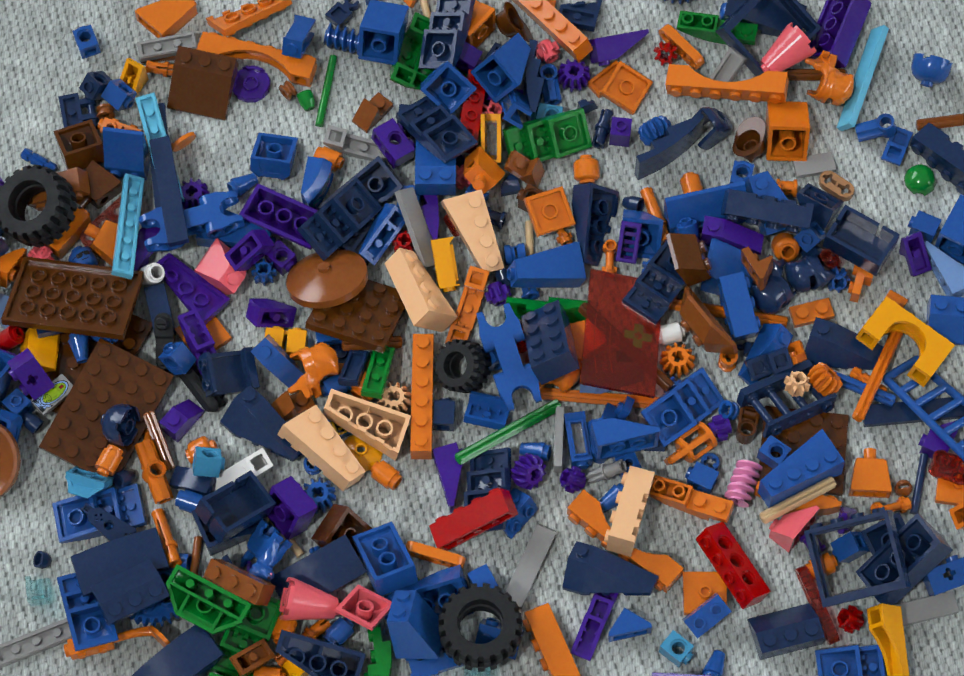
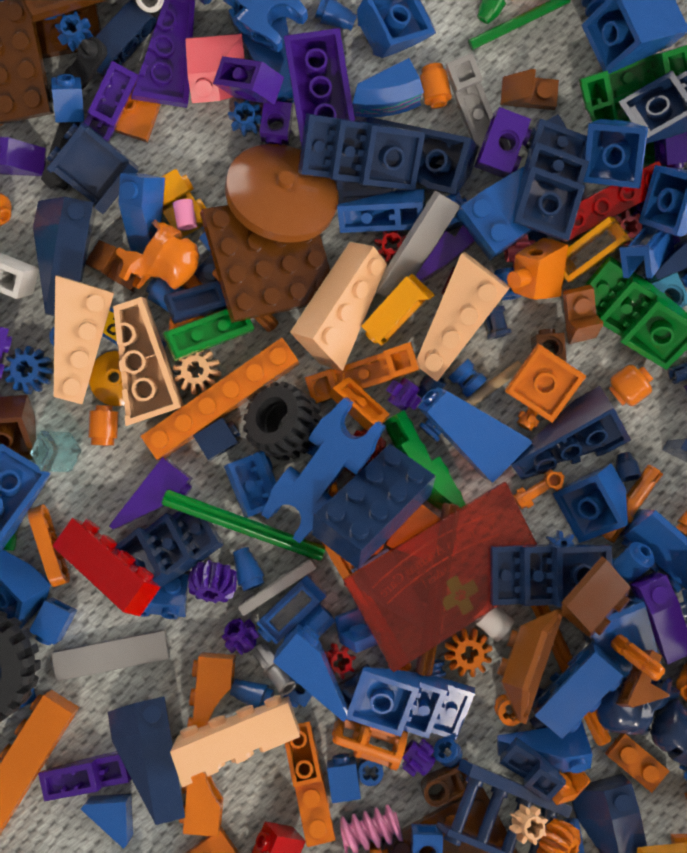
camera: 50 degrees right, 20 degrees up
(137, 333) = (69, 24): none -> blue gear
(270, 313) = (199, 160): dark purple slope -> none
(298, 338) = (184, 214): none -> bright pink hinge
(380, 512) = (55, 451): none -> clear light blue panel
(493, 317) = (364, 409): none -> orange plate
(510, 186) = (549, 312): dark blue tile -> none
(624, 258) = (553, 510): dark purple slope -> none
(739, 258) = (638, 657): none -> orange axle

